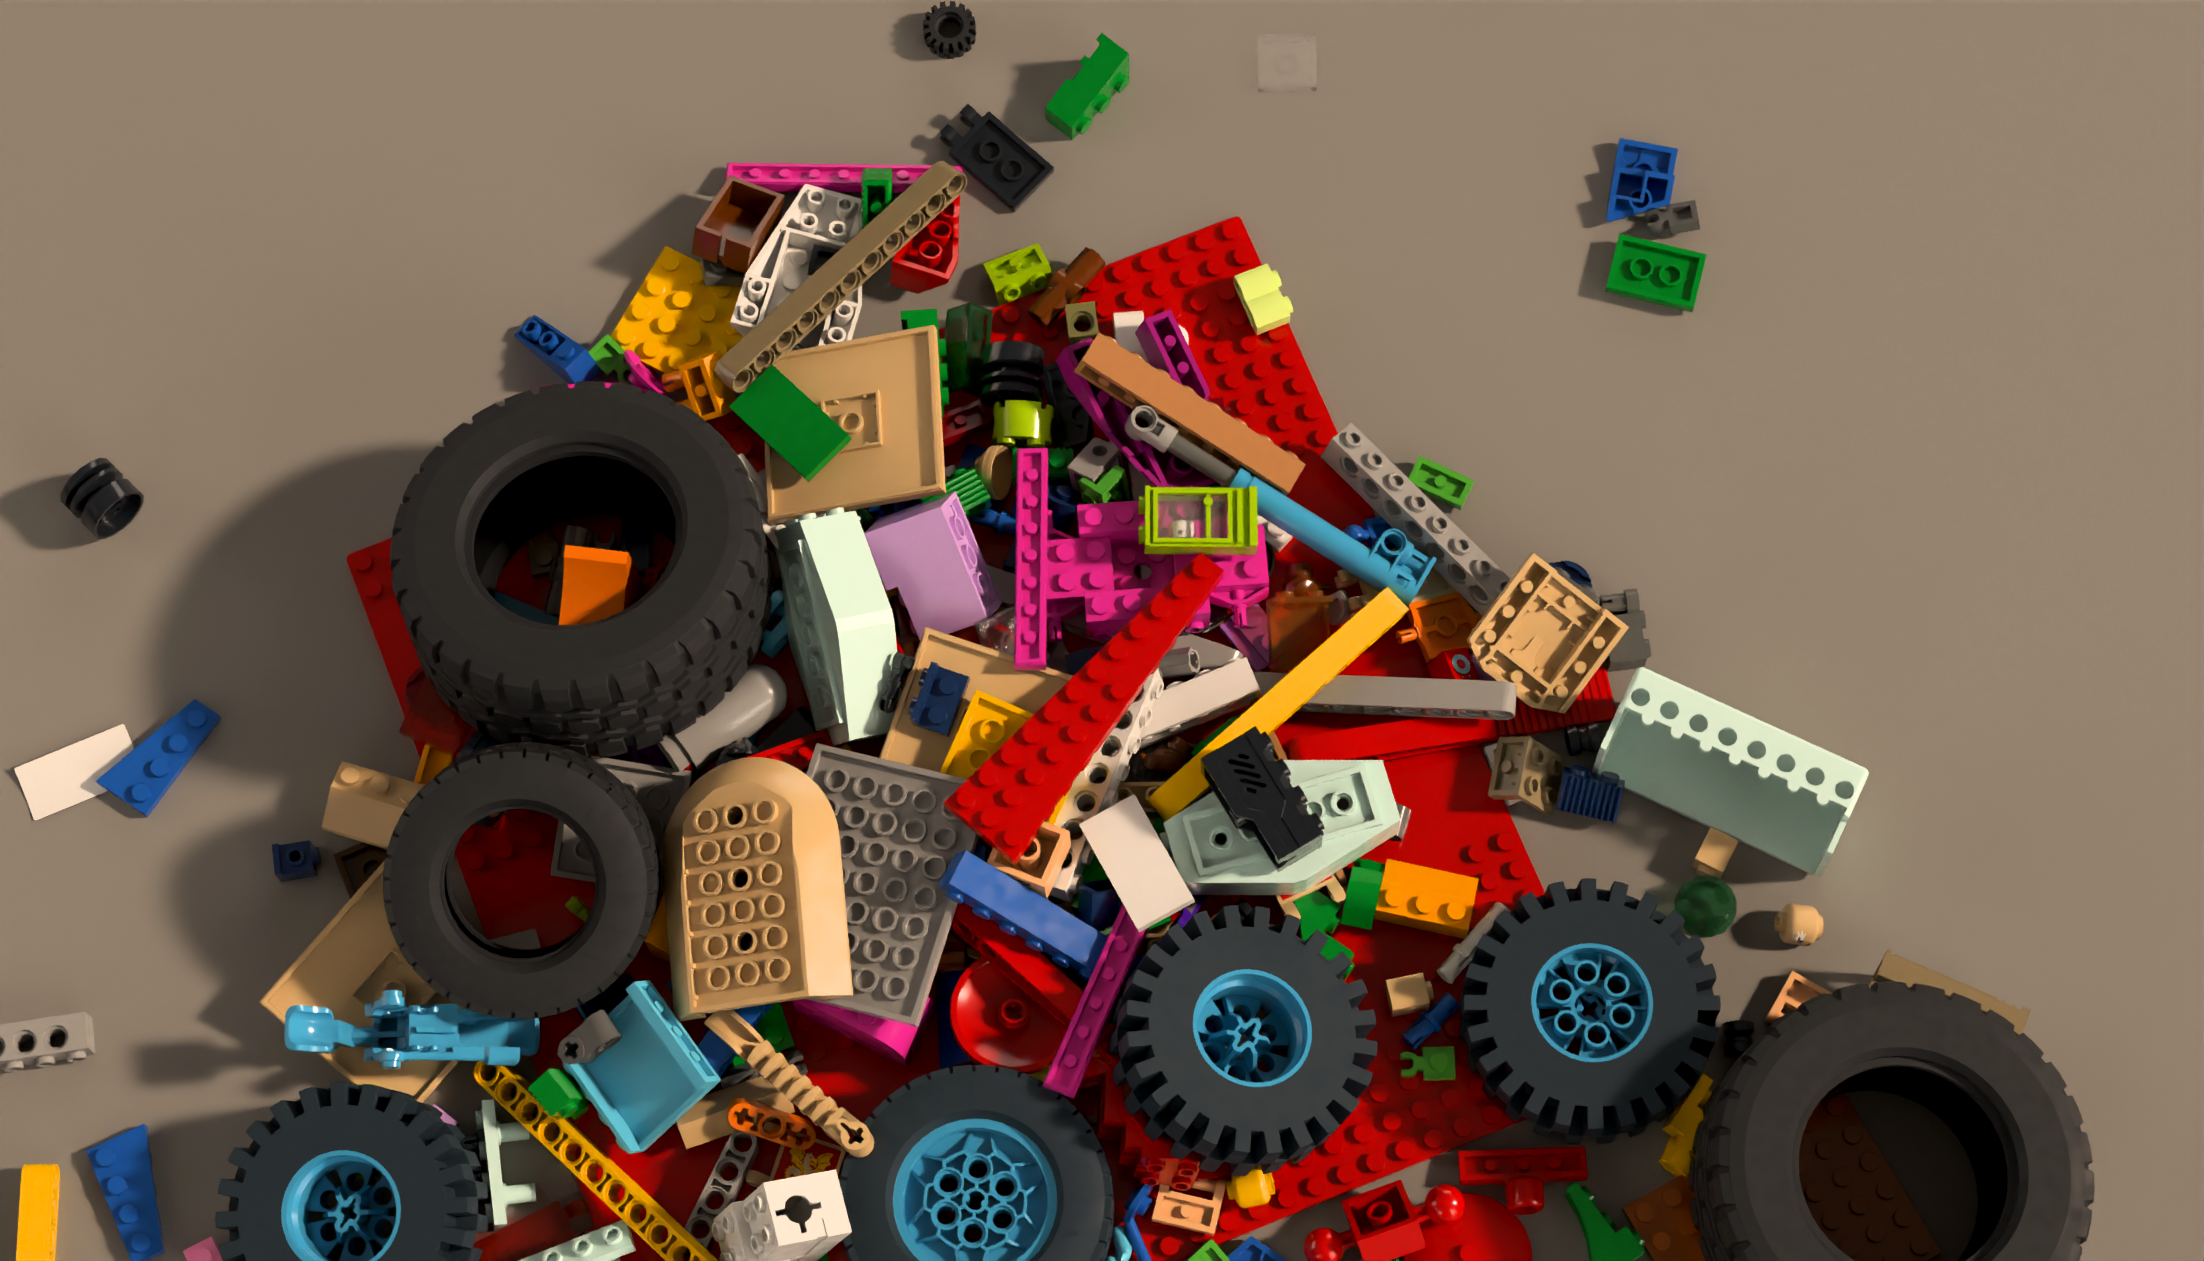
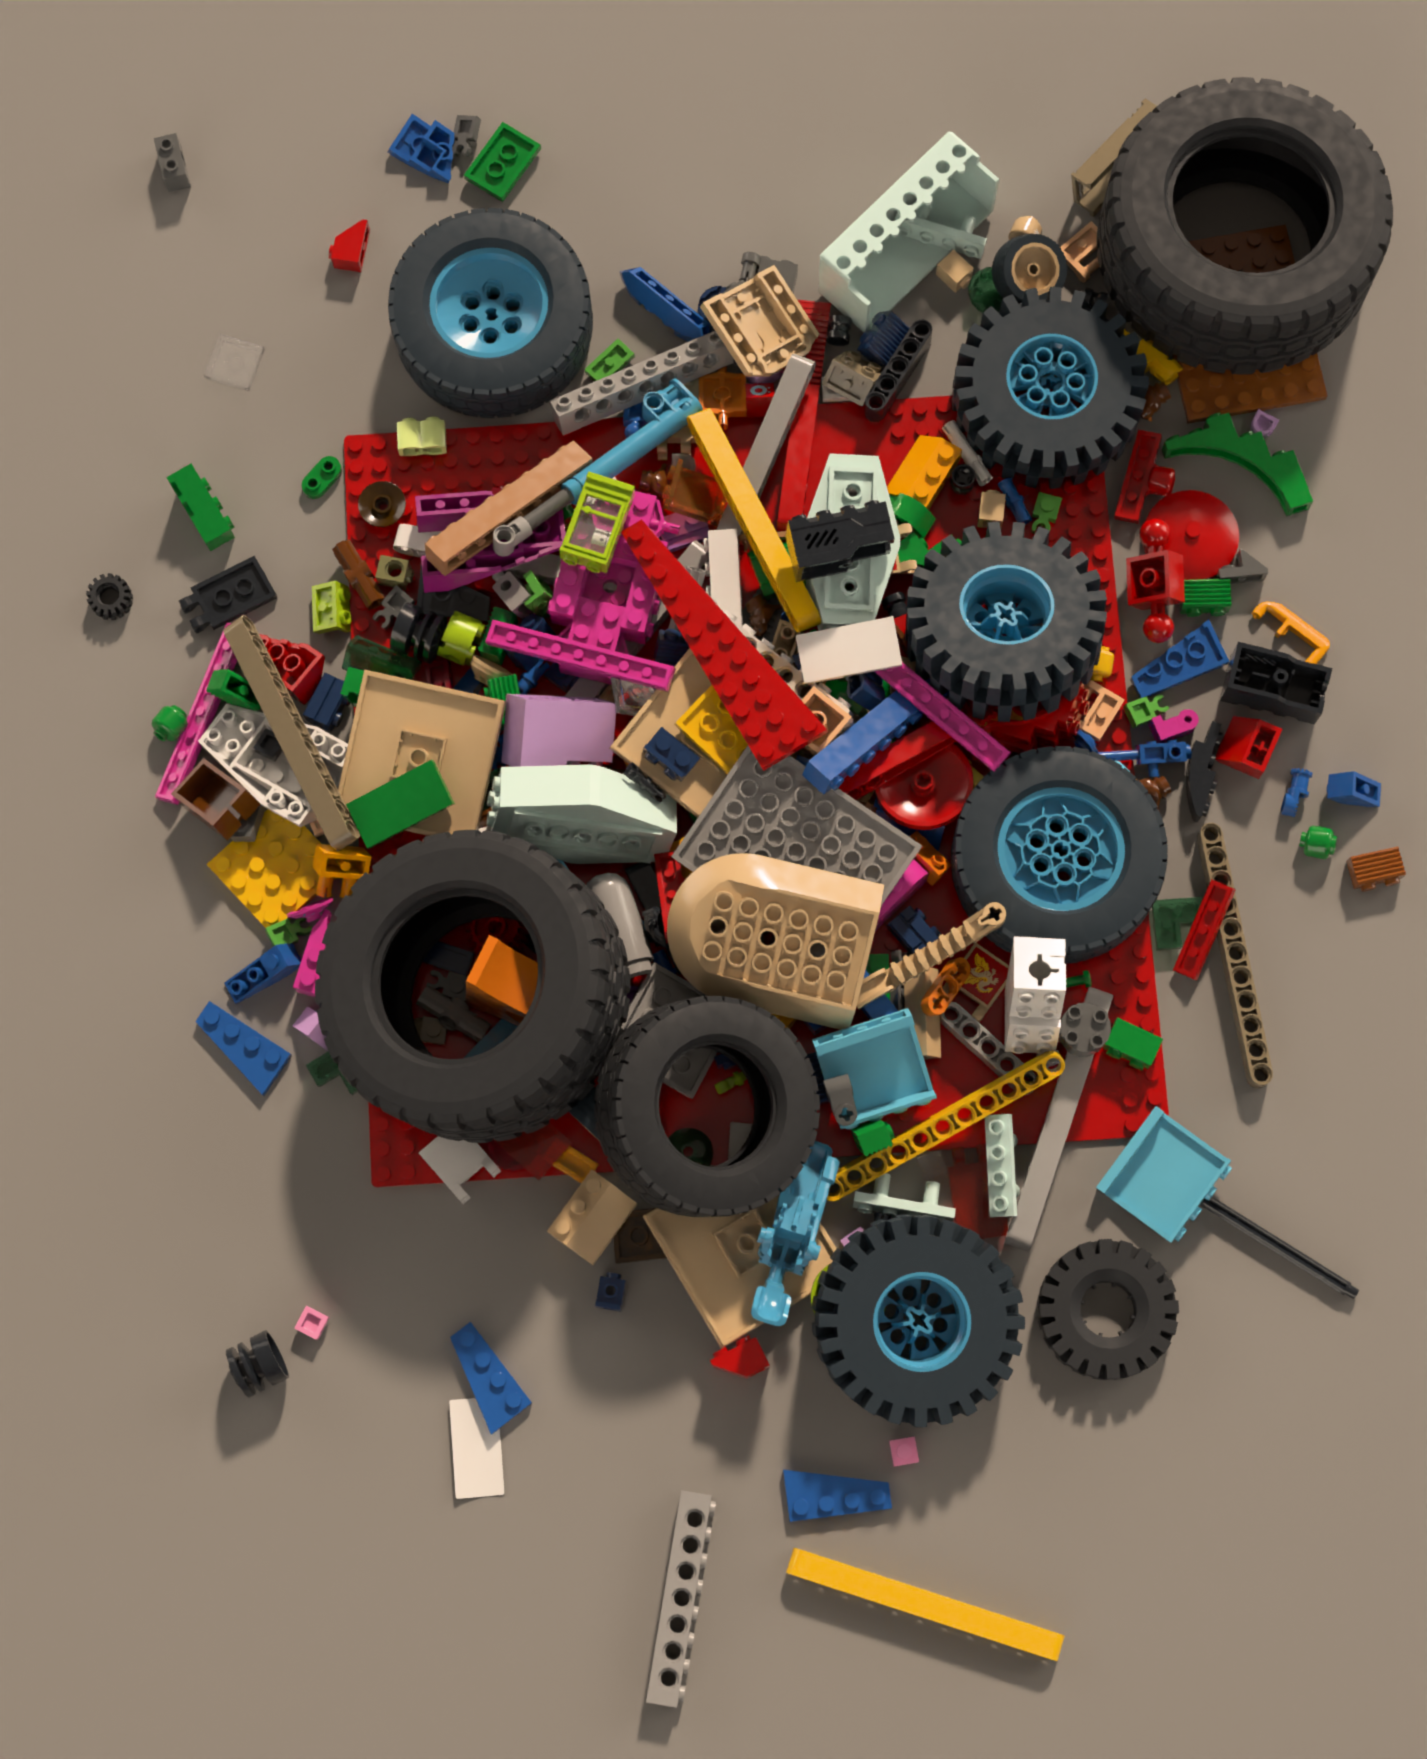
camera: 70 degrees left, 5 degrees up
(169, 543) = (312, 1323): none -> bright pink plate
(256, 1036) = (743, 1360): none -> red slope
(390, 640) = (457, 1163): none -> white flag
(464, 366) = (248, 1050): none -> blue wing
(489, 908) = (697, 1141): none -> dish
(818, 146) = (169, 723): none -> green head
(835, 1066) = (912, 929): none -> dark blue brick
(890, 301) = (326, 703): none -> dark blue brick
(927, 1048) = (930, 859): none -> orange bracket
(1045, 337) = (393, 604): none -> dark grey plate
(1162, 270) = (376, 495): none -> dark brown dish
(1176, 209) = (323, 477): none -> green plate
(1418, 255) = (463, 266): none -> black wheel
(1437, 941) = (963, 474): none -> black wheel
(1478, 140) = (350, 247): none -> red slope
(1540, 513) = (664, 304): none -> blue brick
(1566, 819) = (897, 380): none -> black beam
(1635, 1152) = (1154, 398): none -> reddish brown animal
(1751, 829) = (944, 236): none -> light aqua plate
(1758, 922) = (1028, 264): none -> wheel

